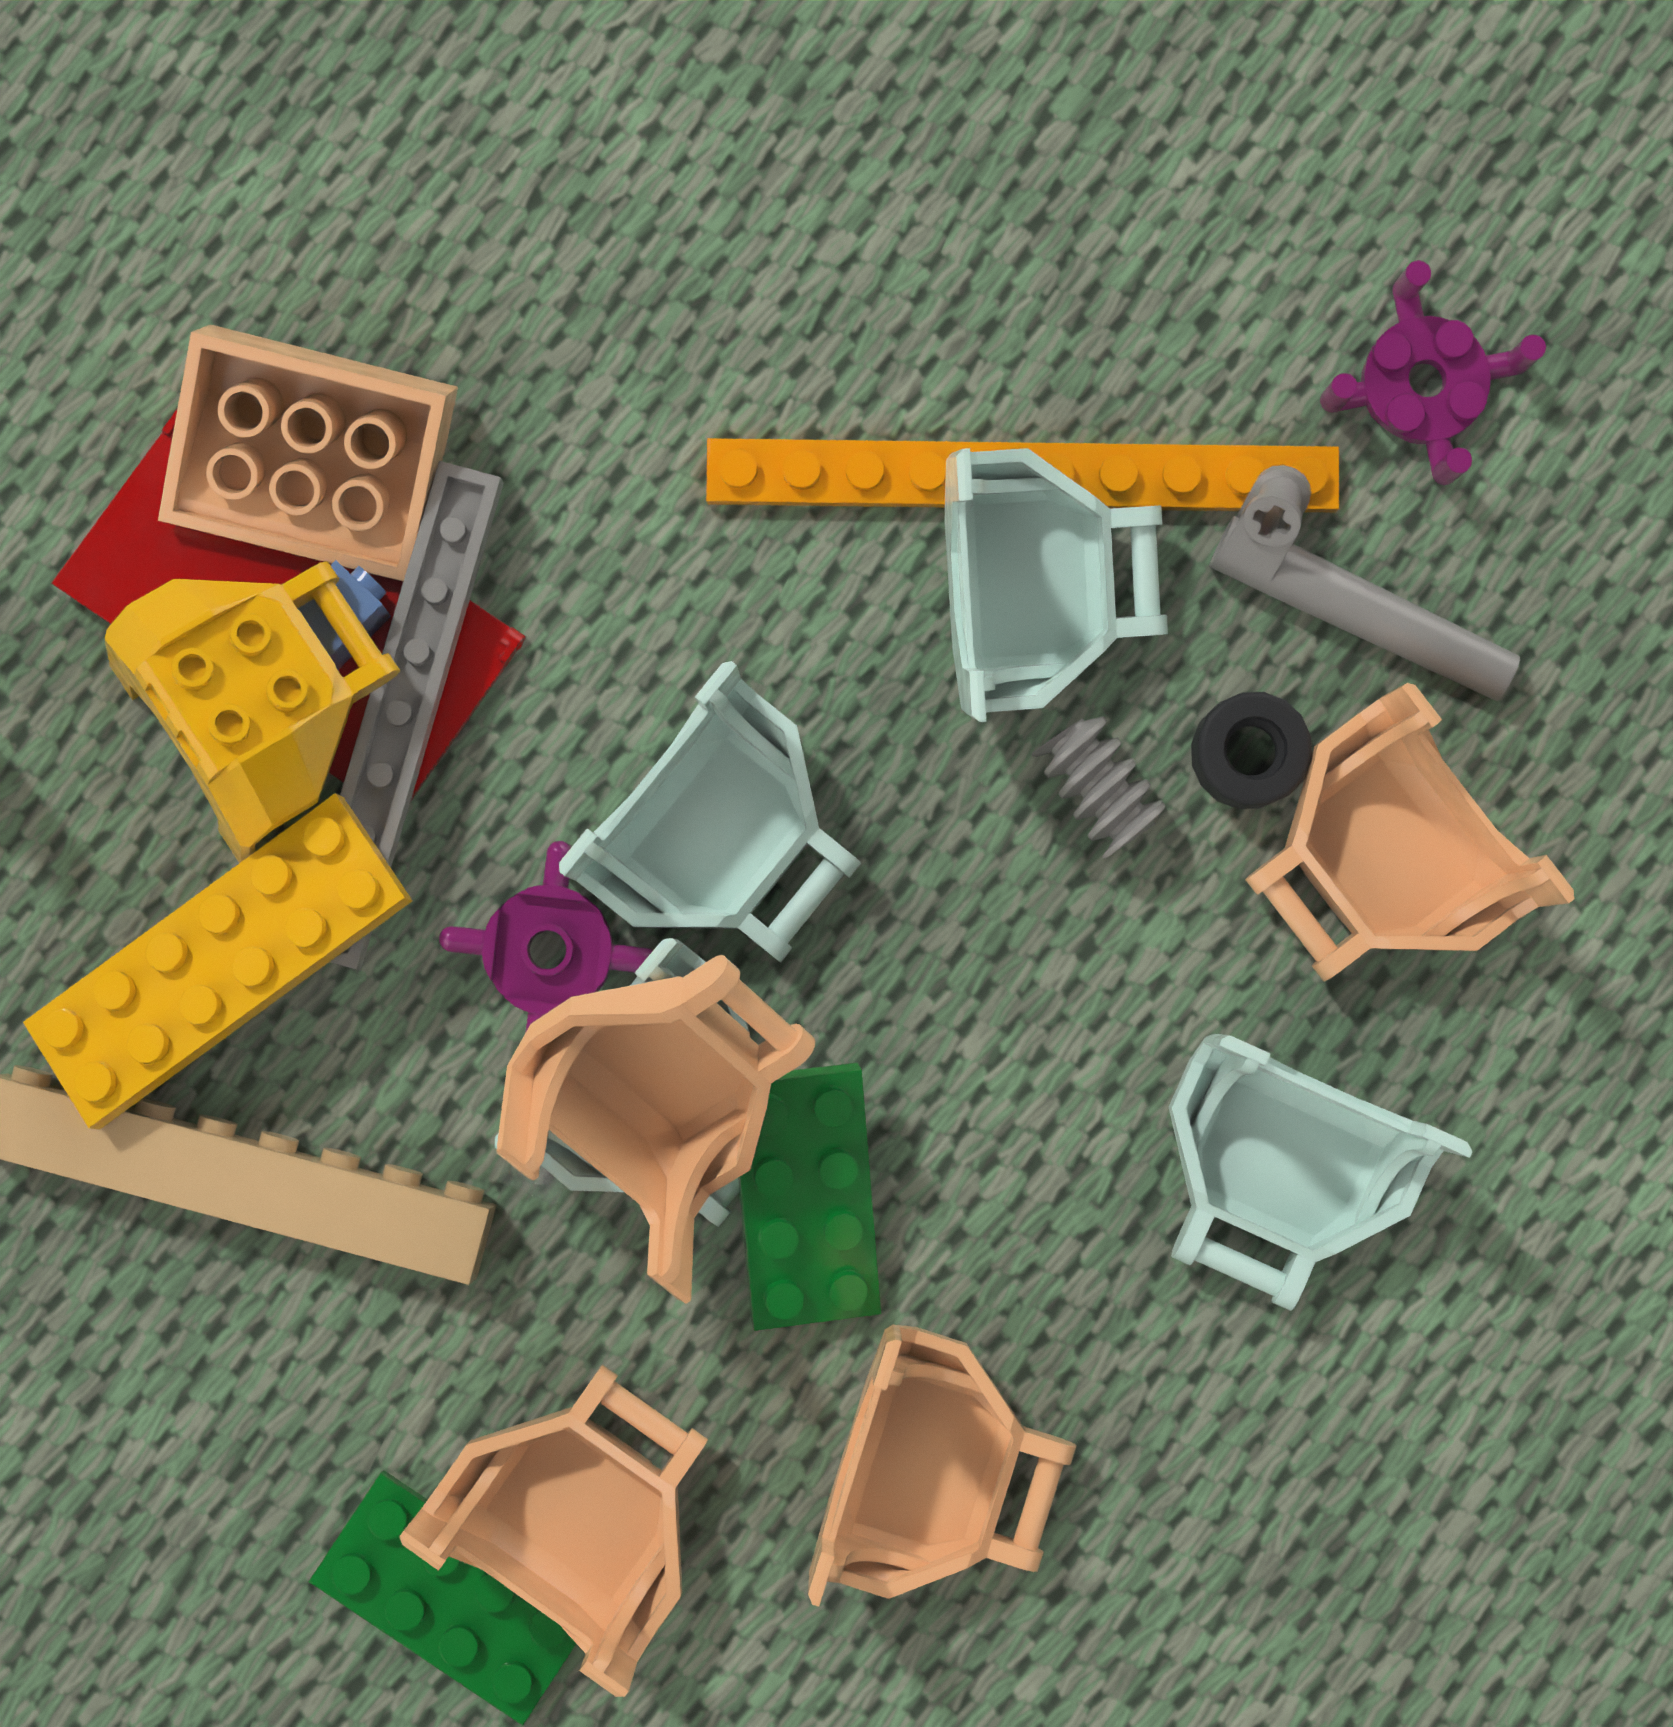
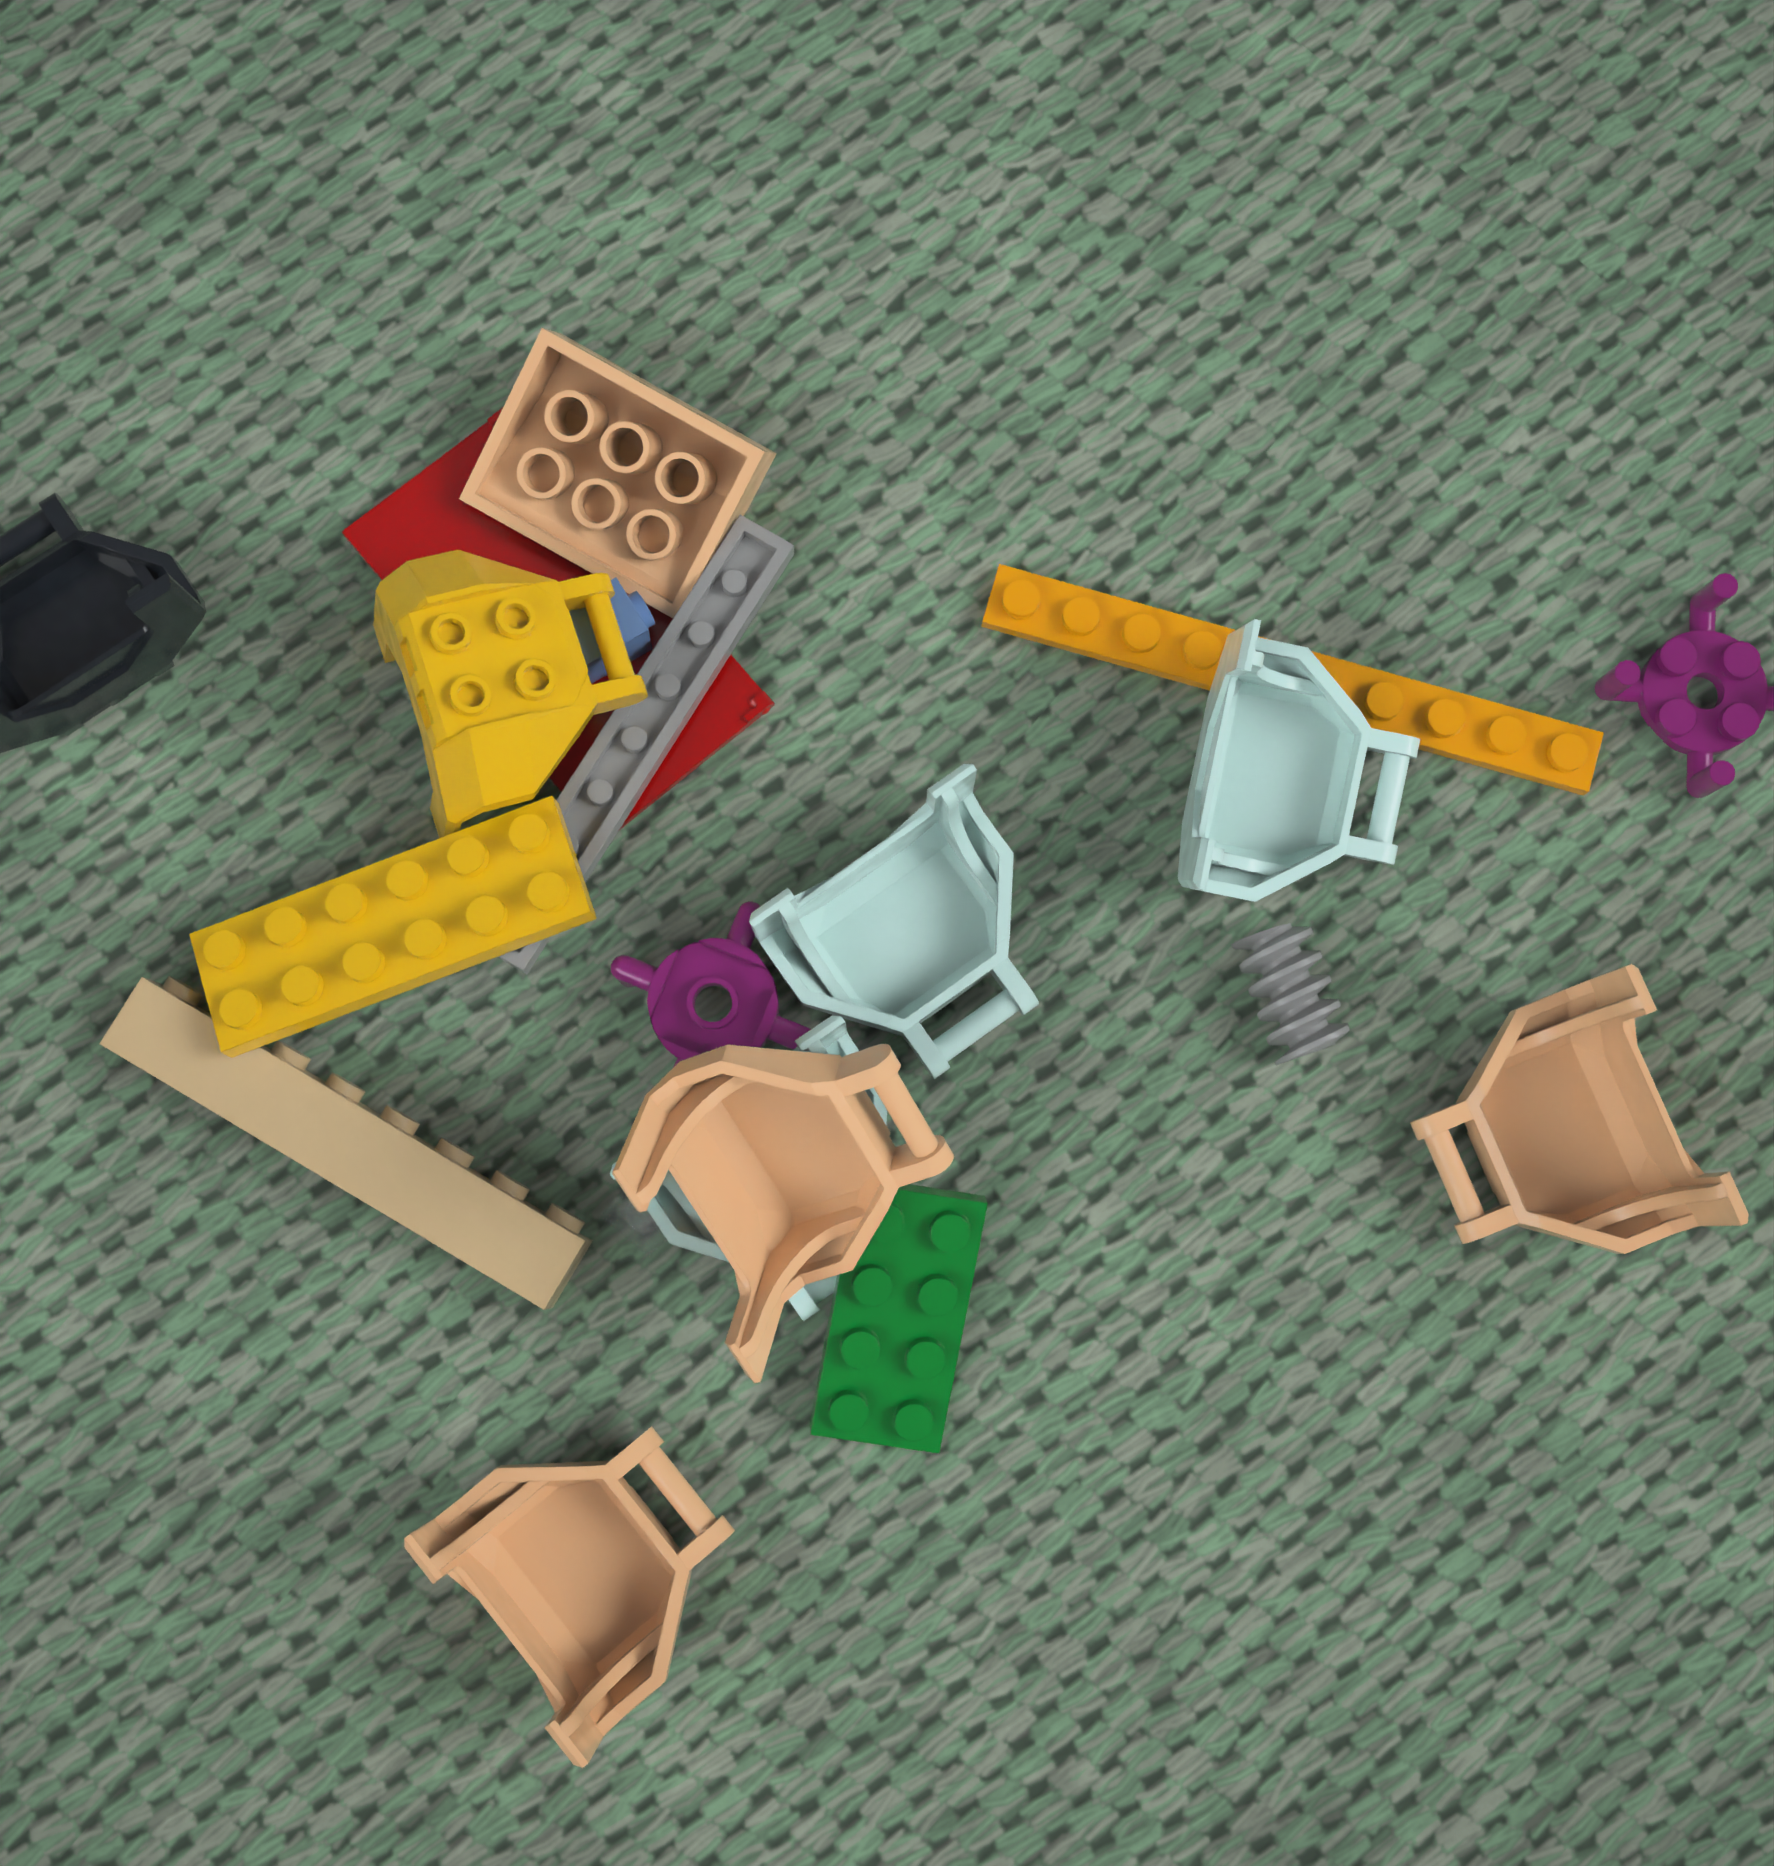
camera: 15 degrees right, 5 degrees down
(448, 1616) = (427, 1633): green plate -> none
(930, 1473) = (946, 1627): light nougat piece -> none
(1261, 554) = (1504, 815): light grey axle -> none
(1289, 737) = (1487, 995): black tyre -> none
(1289, 1164) = (1387, 1414): light aqua piece -> none

